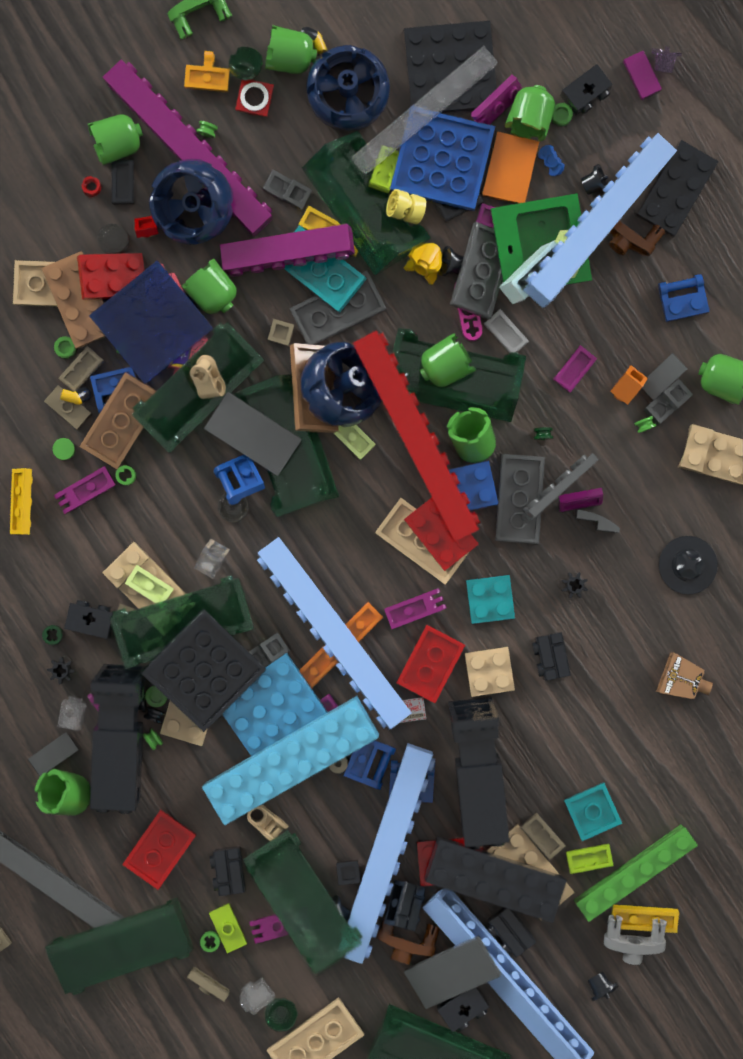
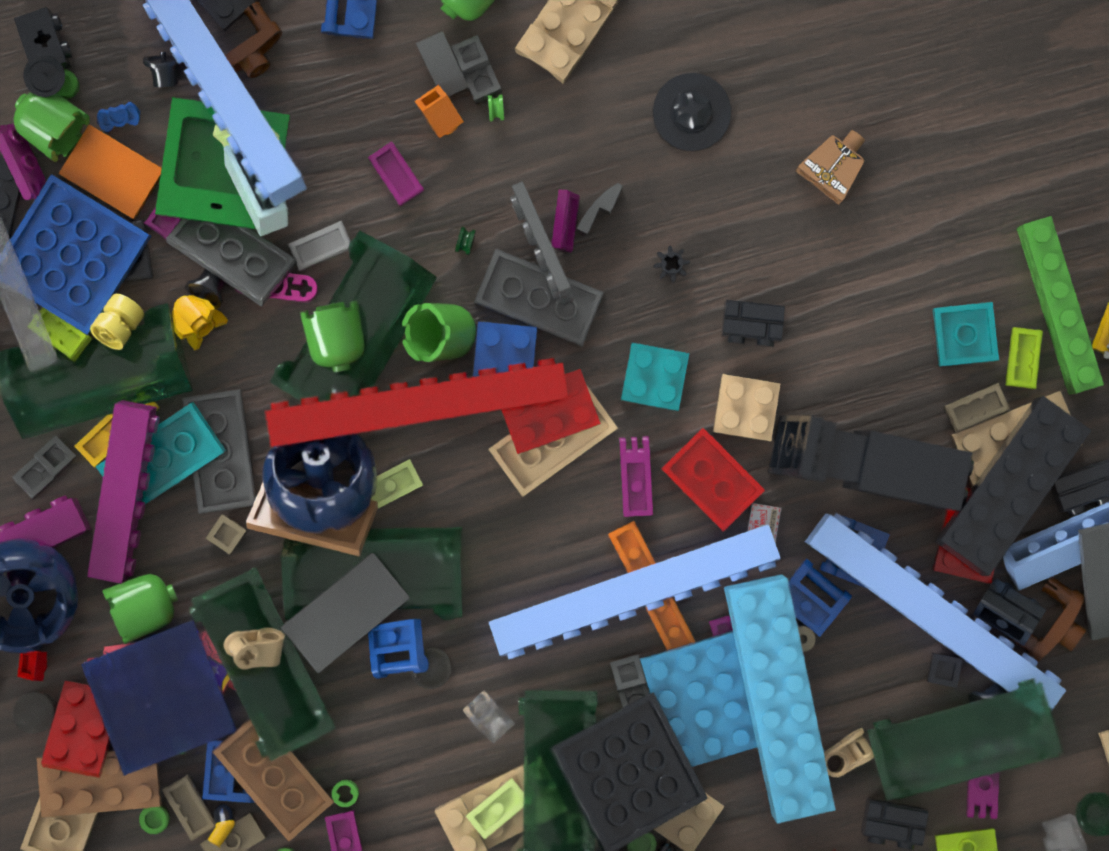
camera: 75 degrees left, 0 degrees up
(562, 98) = (44, 76): none -> black piece

